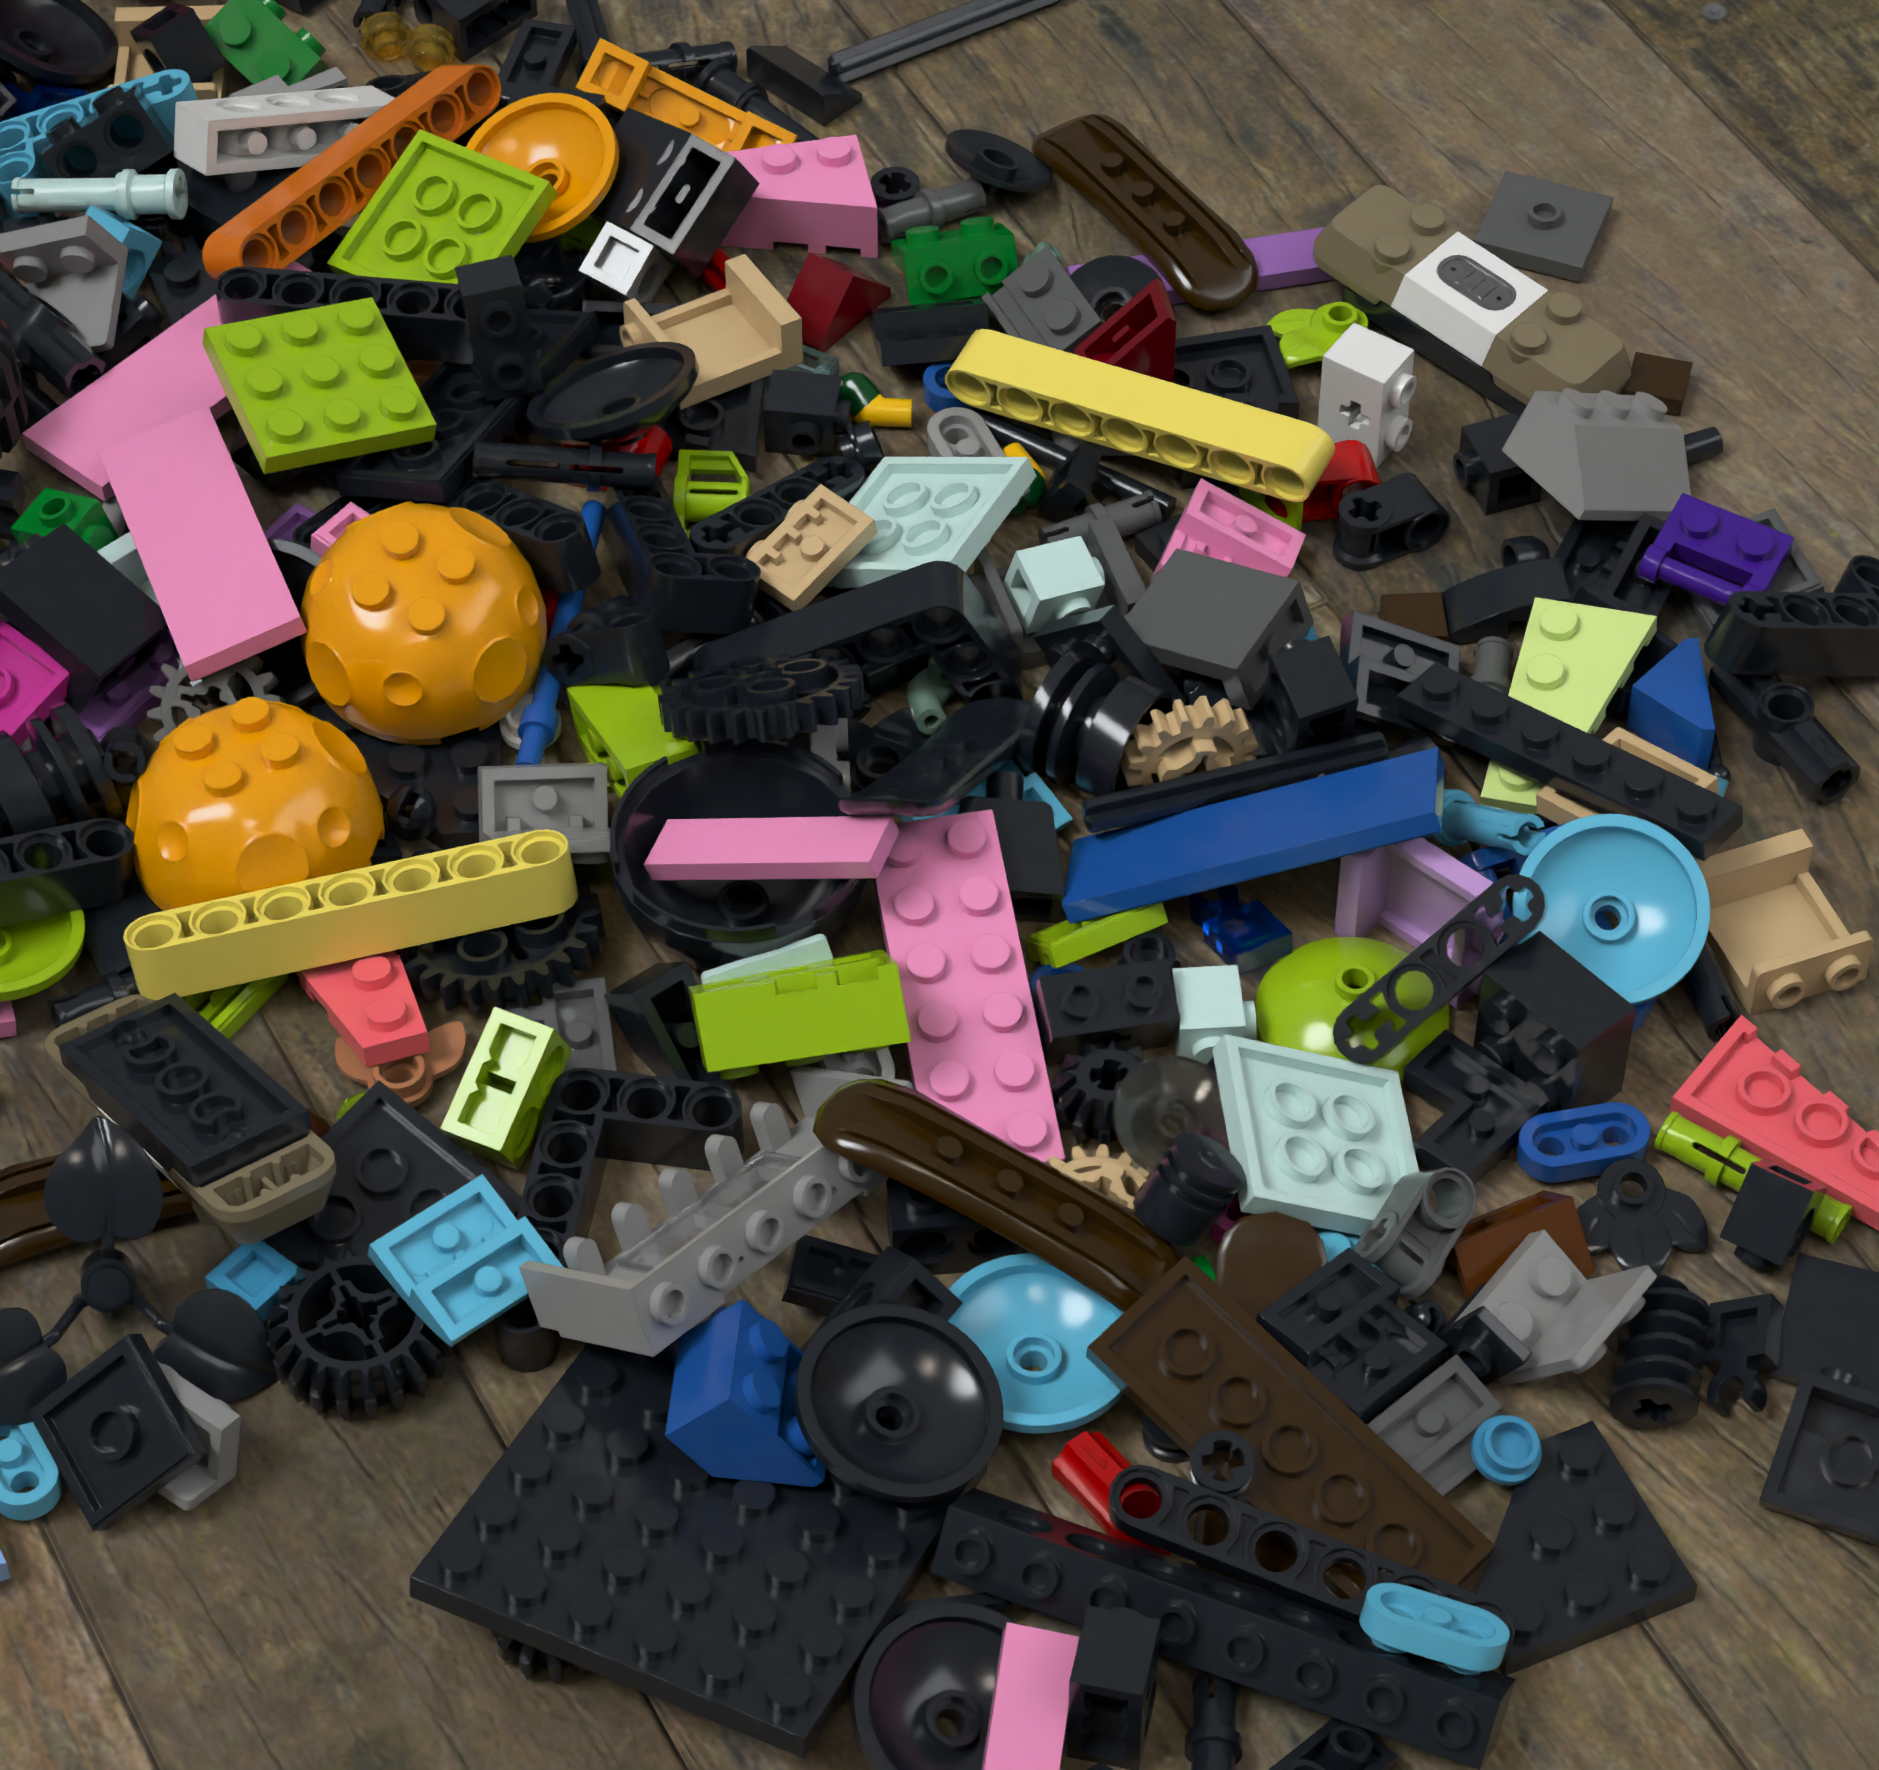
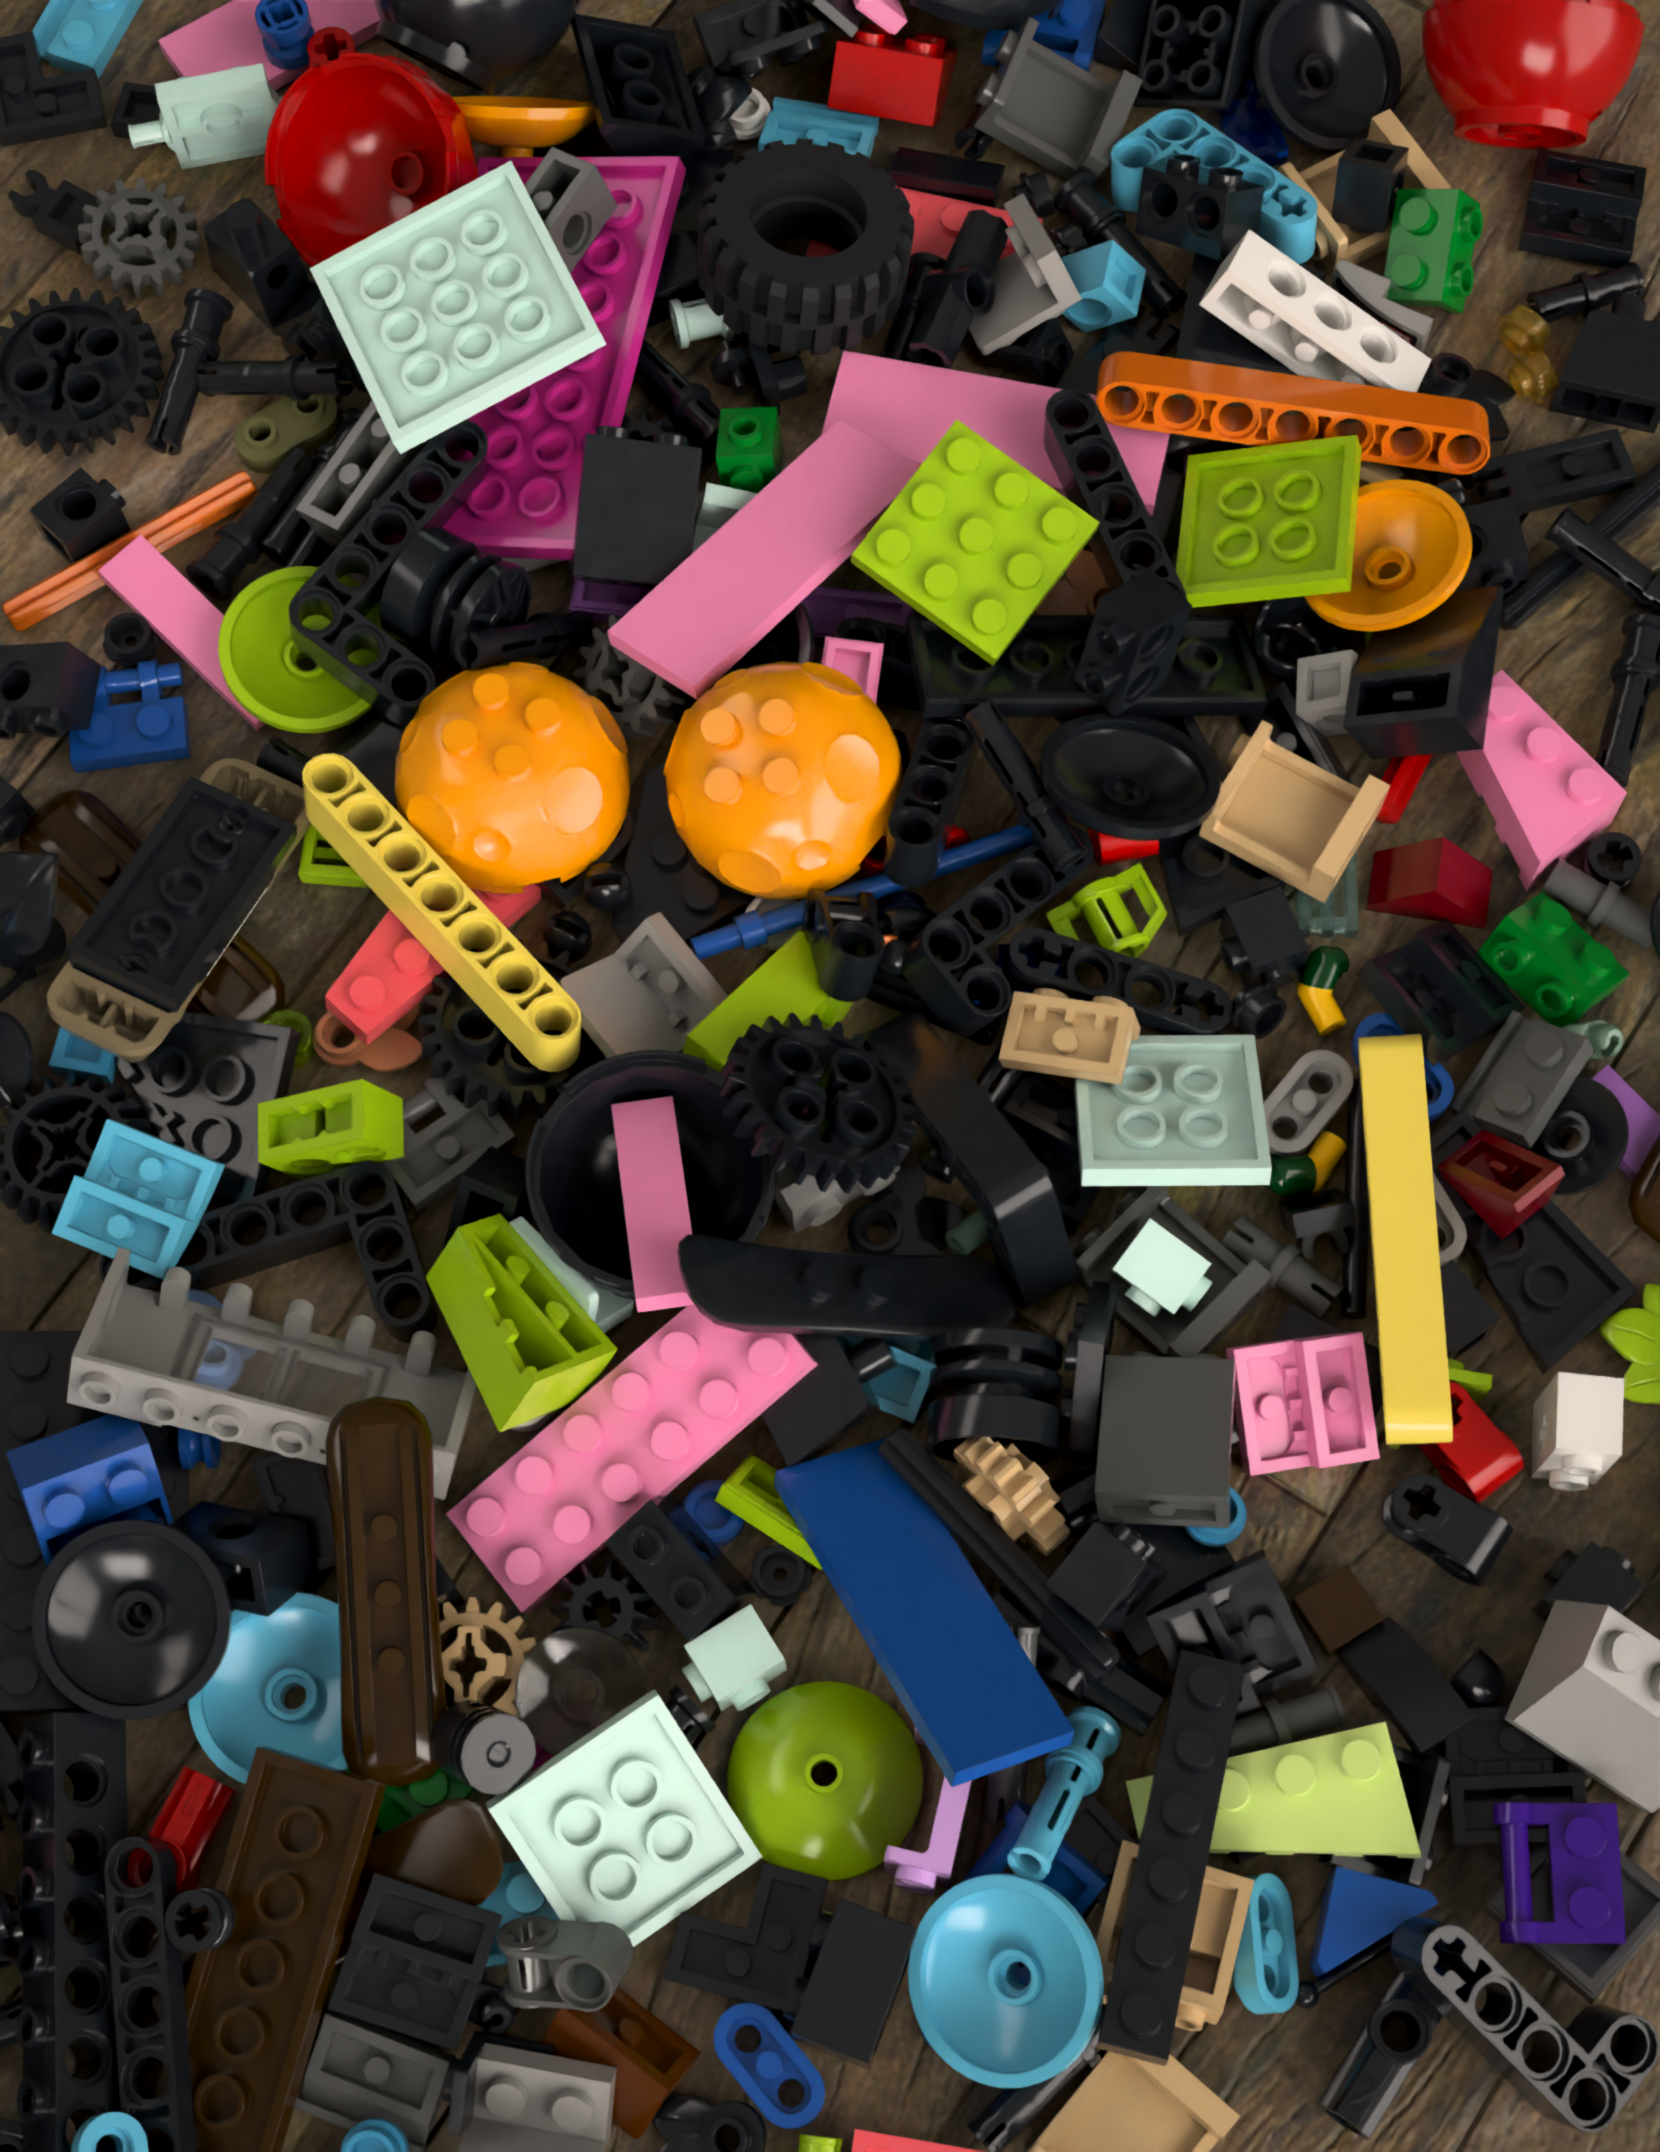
camera: 65 degrees right, 20 degrees up
(125, 194) = (1152, 256): light aqua pin -> none
(640, 86) = (1578, 627): light orange slope -> none
(1240, 933) = (843, 1651): clear blue plate -> none
(1434, 962) = (833, 1861): black beam -> none

